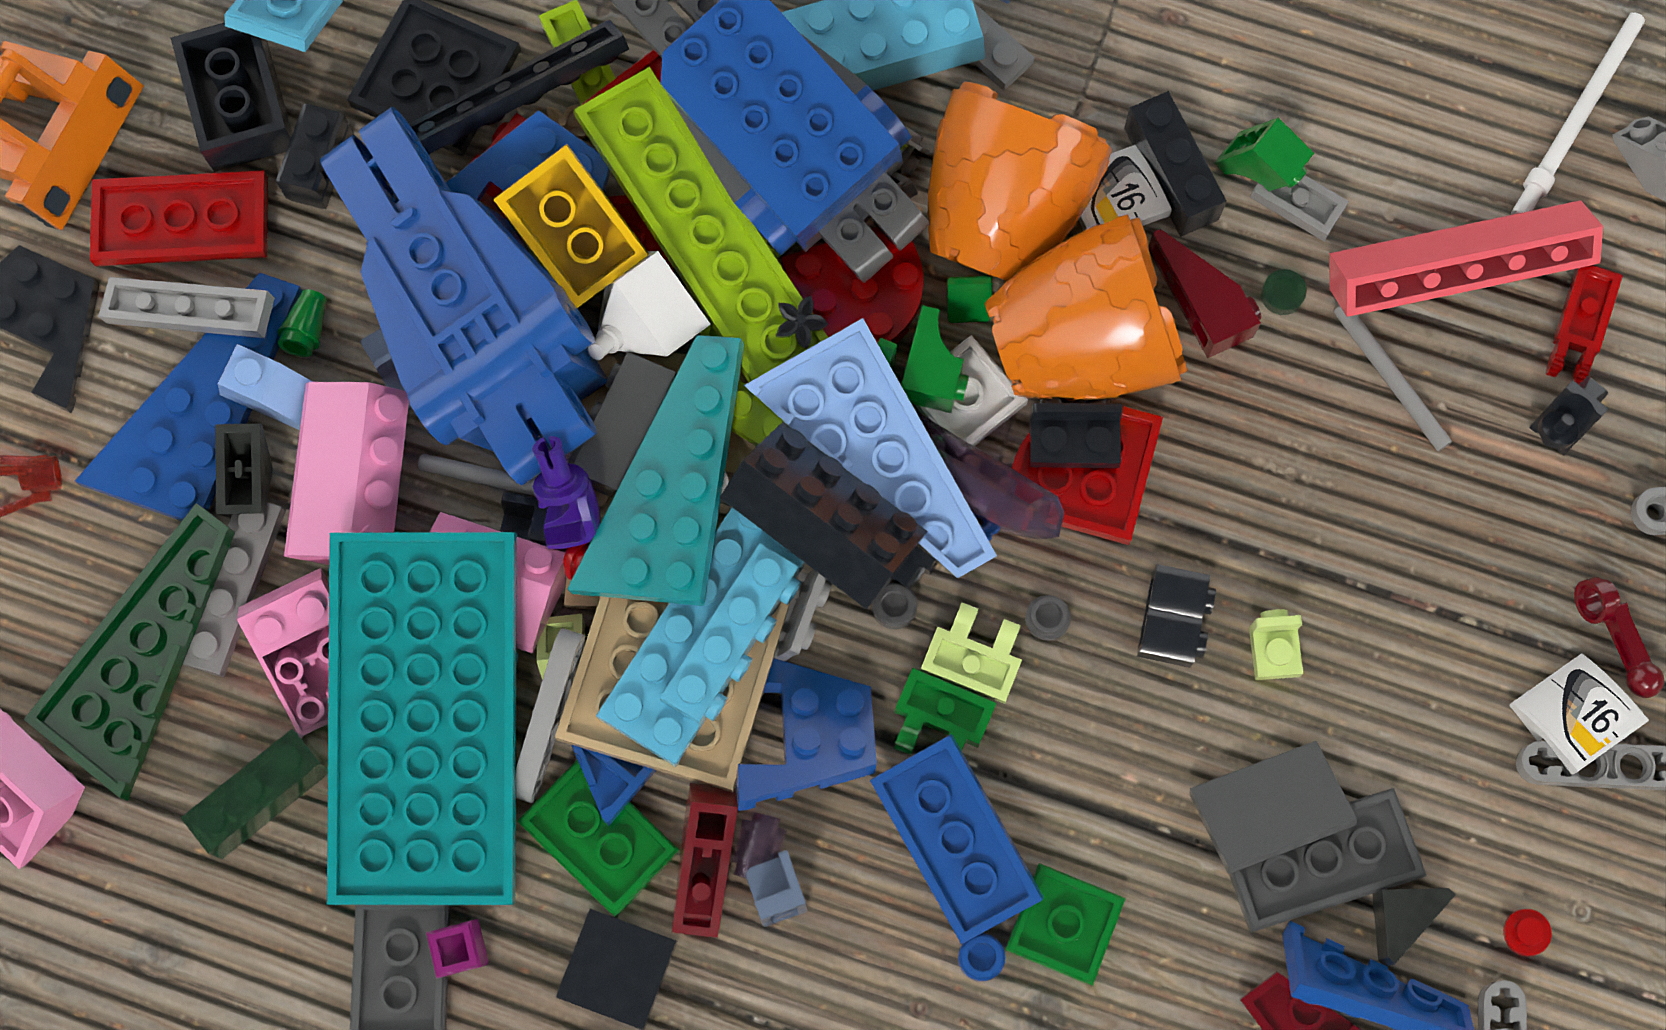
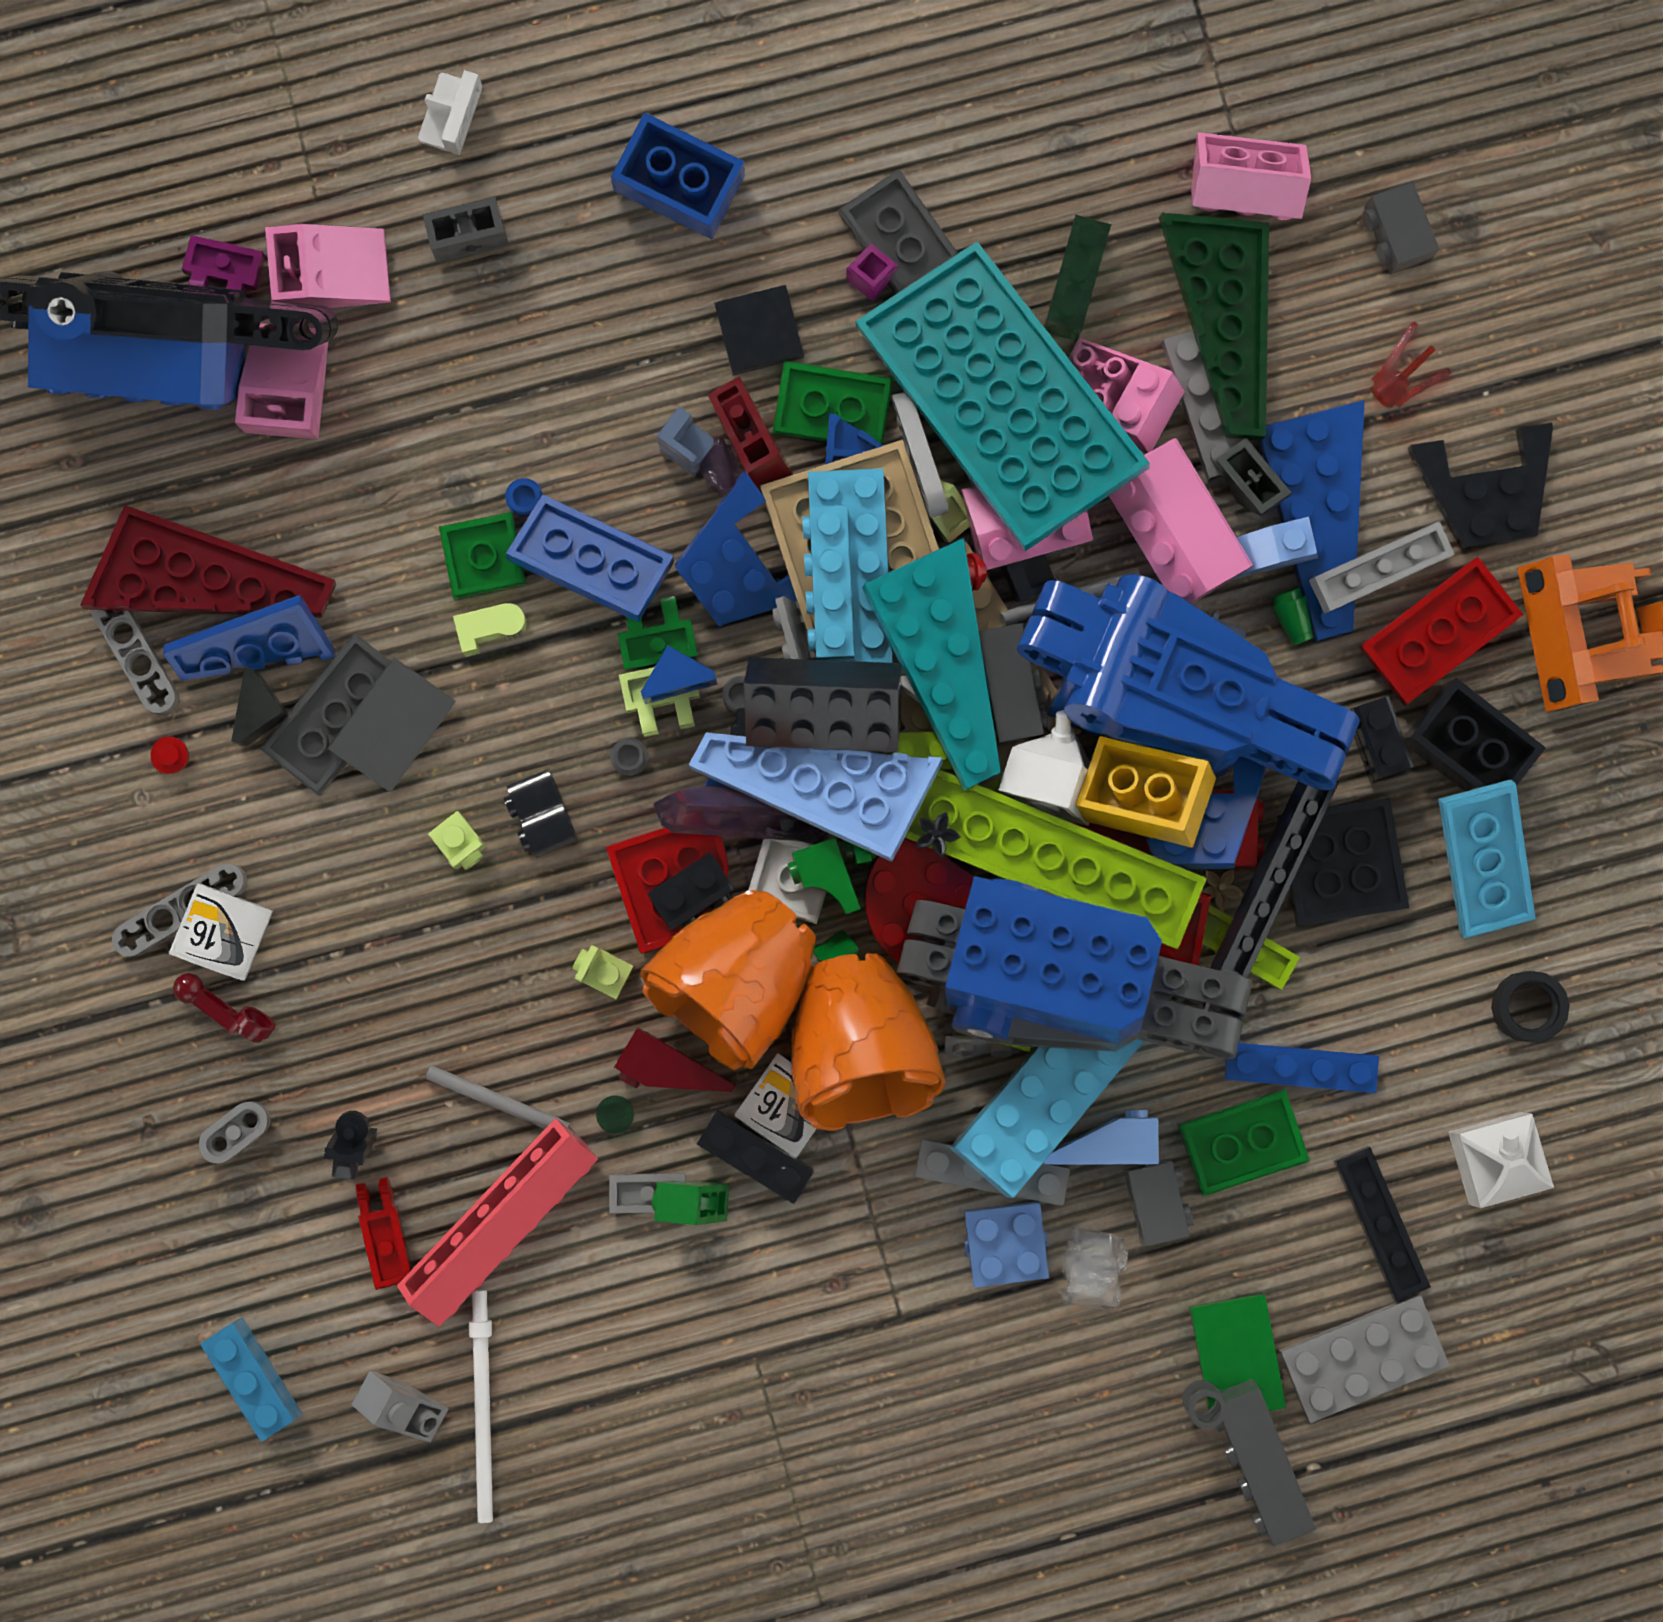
camera: 135 degrees right, 10 degrees up
(569, 493) = (1006, 596): dark purple piece -> none
(950, 653) = (675, 676): none -> blue slope
(1090, 839) = (488, 624): none -> yellowish green leg
(1210, 429) = (602, 971): none -> yellowish green bracket

